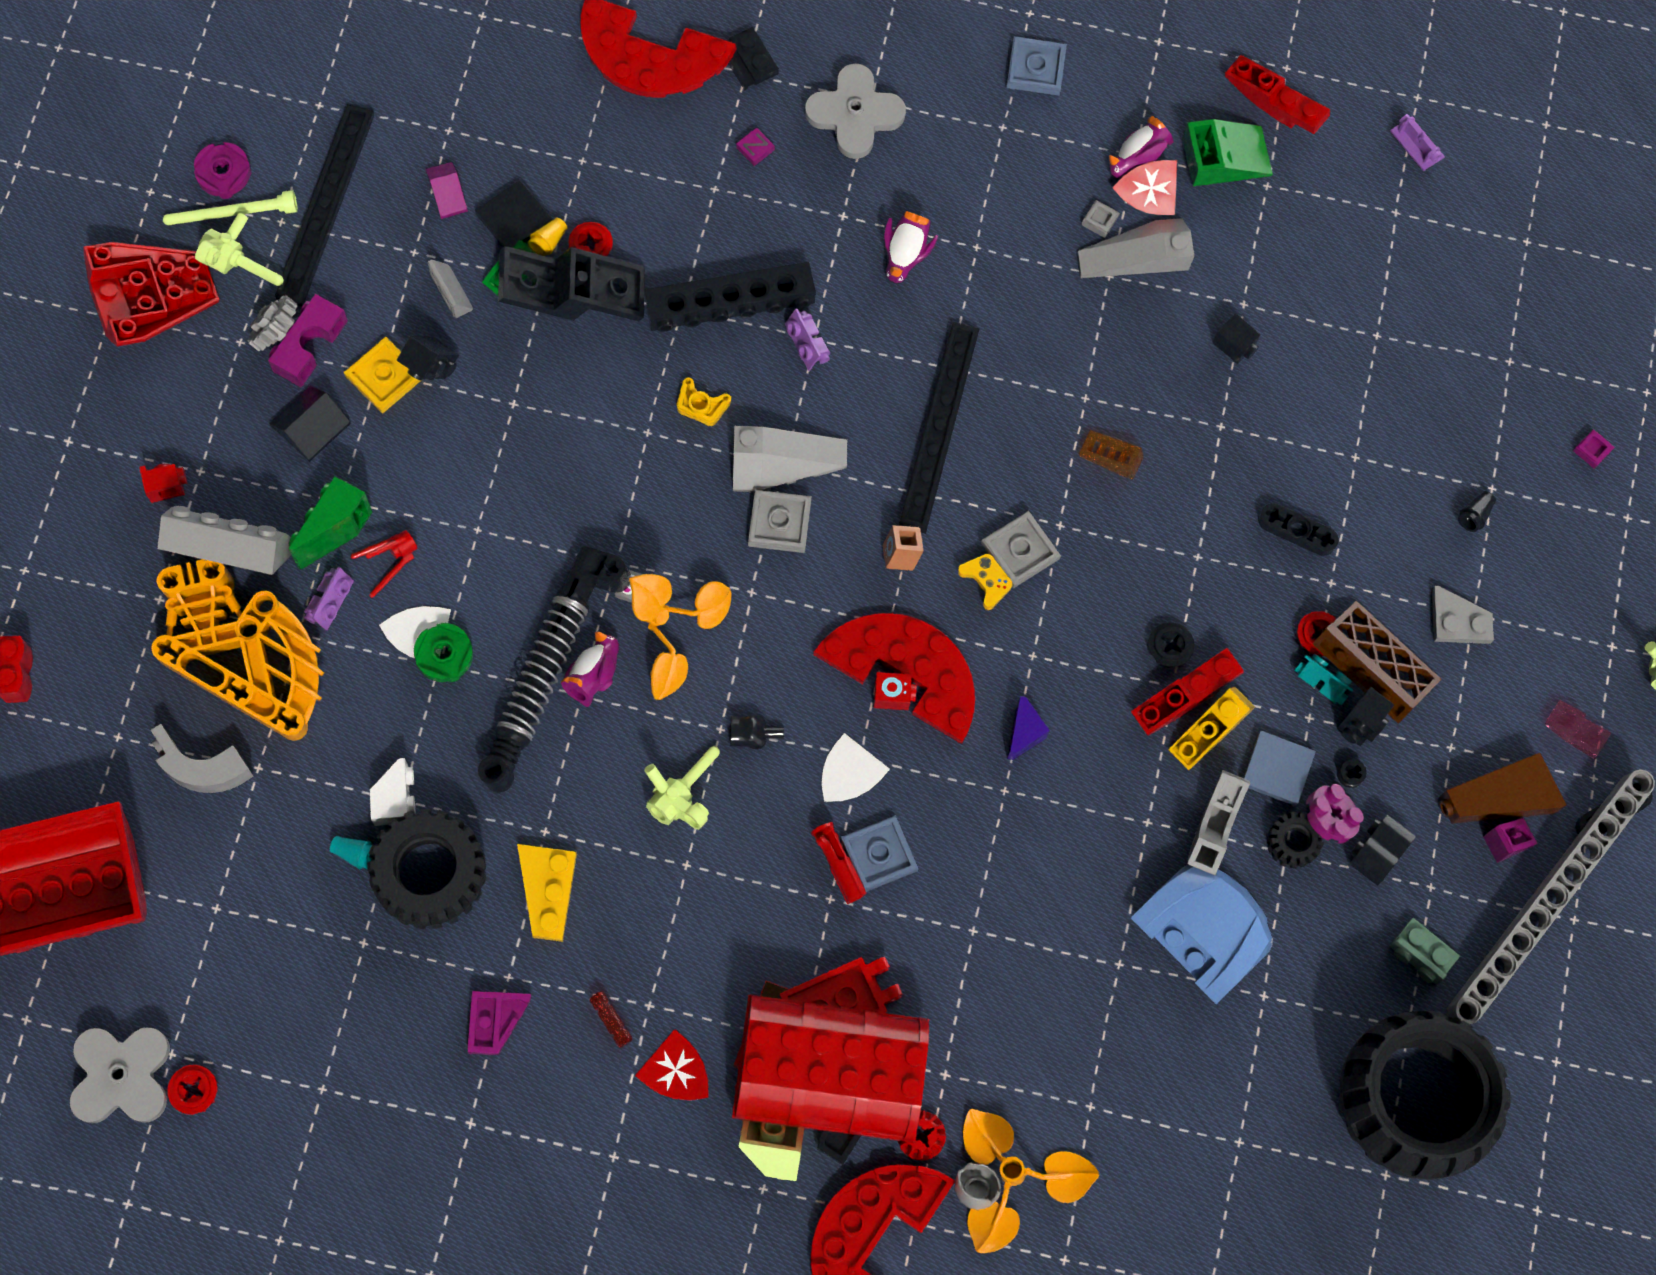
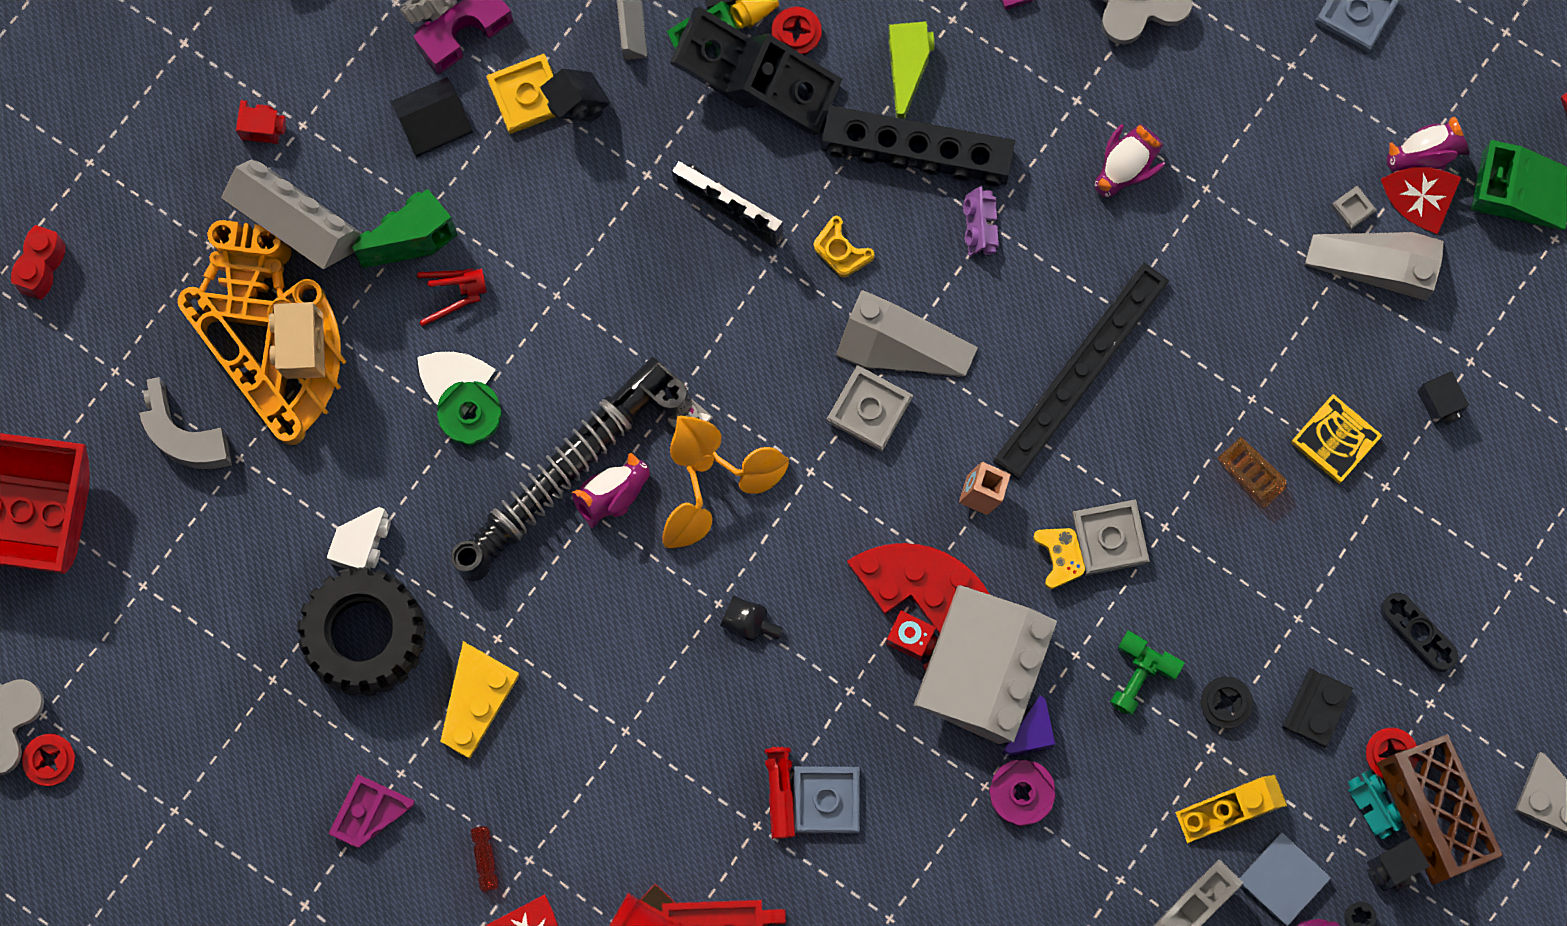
camera: 30 degrees right, 5 degrees up
(274, 640) = (298, 340): none -> tan brick
(334, 588) = (367, 319): medium lavender hinge -> none
(352, 850) = (297, 582): teal cone -> none
(601, 400) = (730, 204): none -> black wing
(673, 797) = (638, 657): yellowish green piece -> none
(691, 227) = (909, 57): none -> lime slope
(850, 771) = (833, 701): white sticker -> none
(966, 688) = (985, 664): none -> light grey slope
(1040, 799) = (1020, 811): none -> magenta plate
(1093, 638) = (1146, 663): none -> green bar
(1166, 403) = (1336, 439): none -> tile
(1187, 692) = (1220, 761): red slope -> none
(1244, 620) = (1317, 707): none -> black plate

